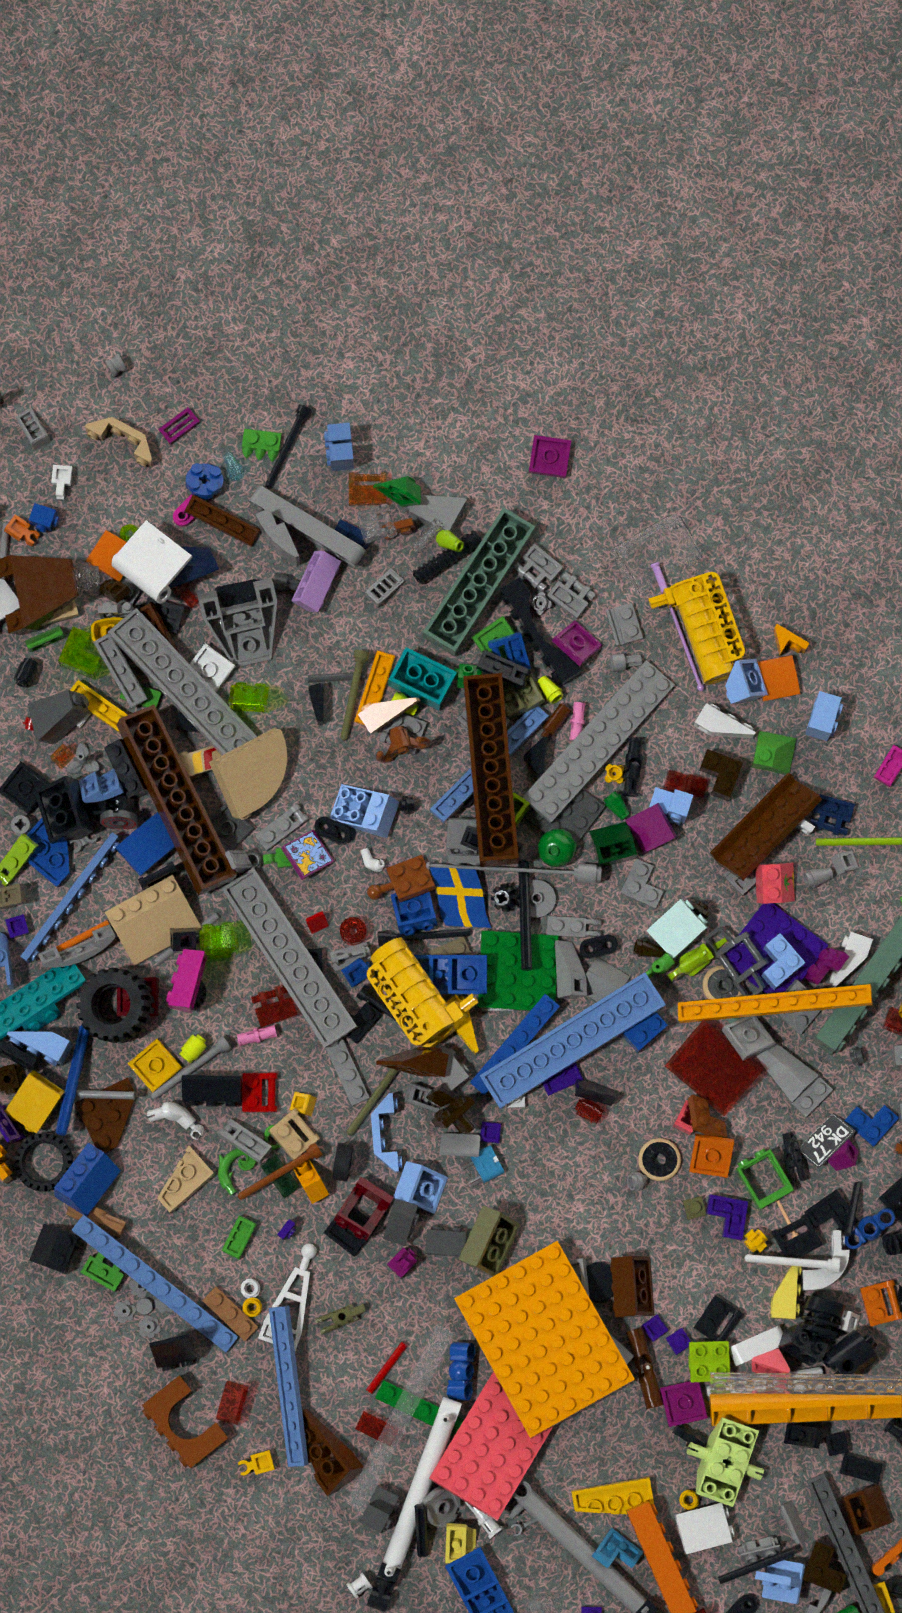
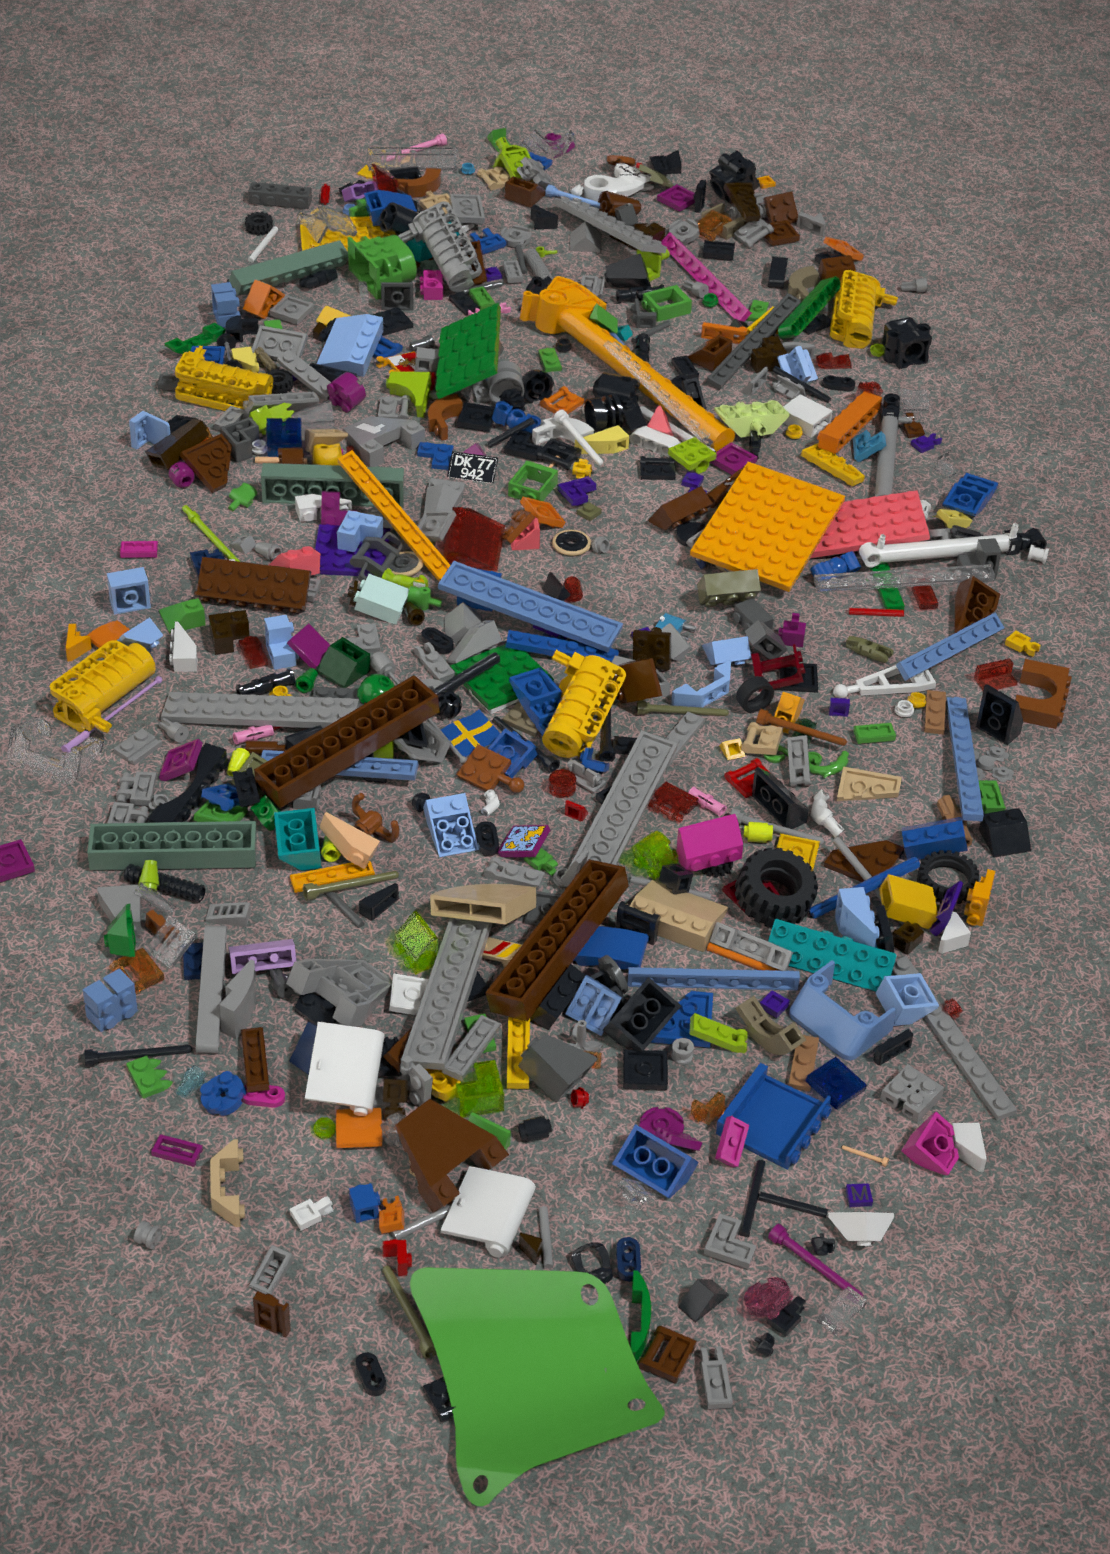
camera: 125 degrees left, 35 degrees down
(790, 1148) = (500, 478): black hinge -> none

